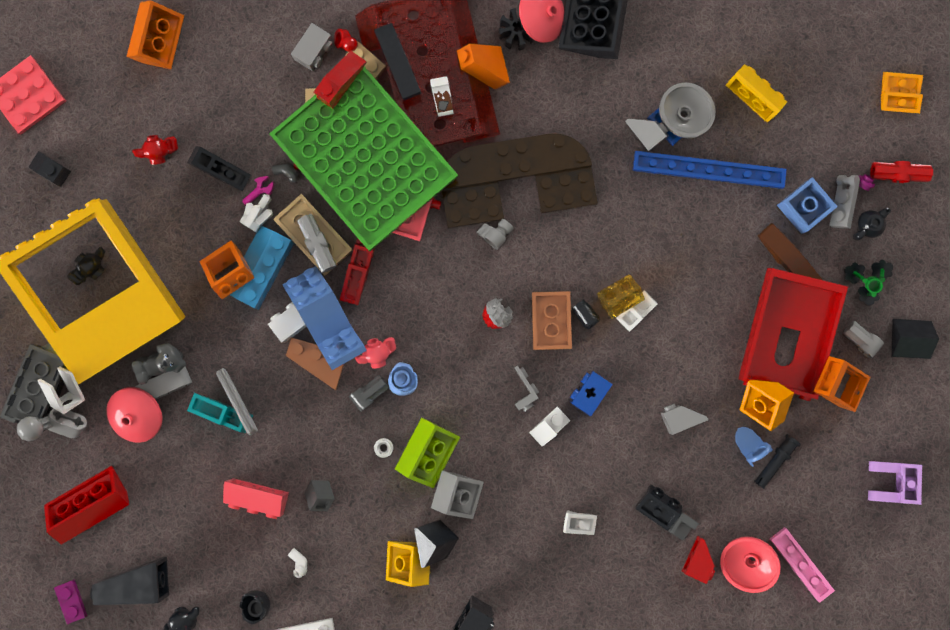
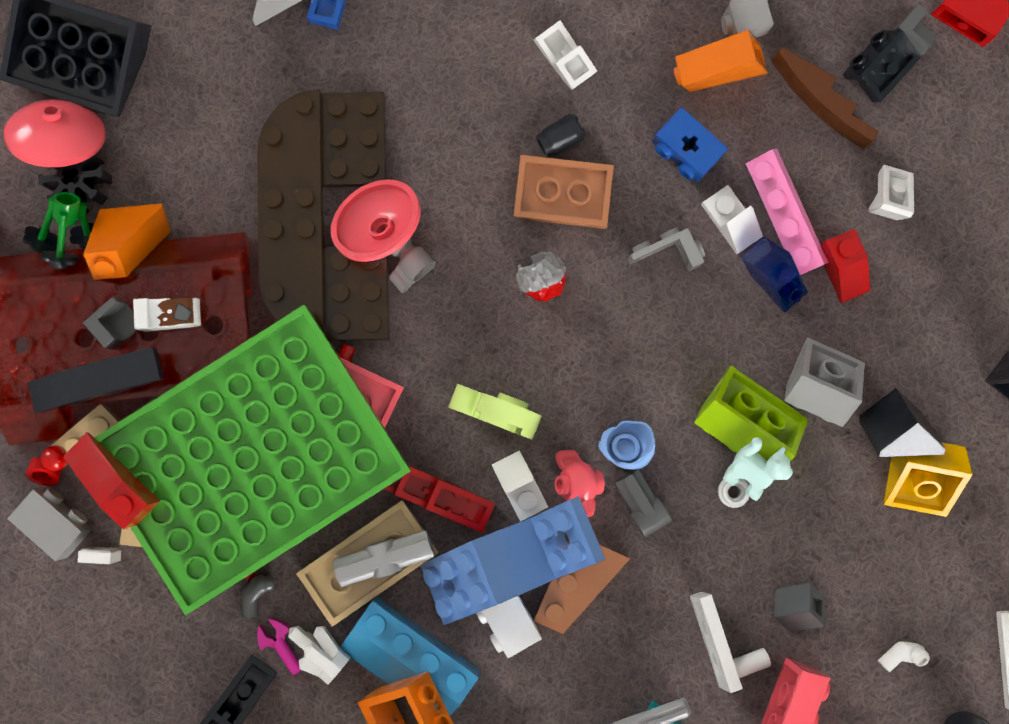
camera: 80 degrees left, 0 degrees up
(276, 456) = (725, 667): none -> white piece
(297, 78) = (99, 555): none -> white tile
(370, 318) = (520, 486): none -> white slope
(397, 457) = (756, 470): none -> light aqua animal
(411, 299) = (500, 411): none -> yellowish green piece
(431, 66) = (112, 323): none -> dark grey panel
(496, 28) = (66, 211): none -> plant
(516, 209) = (375, 220): none -> coral dish
(518, 456) = (775, 273): none -> clear blue slope
(529, 499) = (847, 265): none -> red slope
(558, 458) = (786, 211): none -> bright pink plate
(620, 296) = (538, 68): clear yellow brick -> none
(638, 466) = (815, 90): none -> reddish brown slope
(644, 406) = (721, 62): none -> orange slope

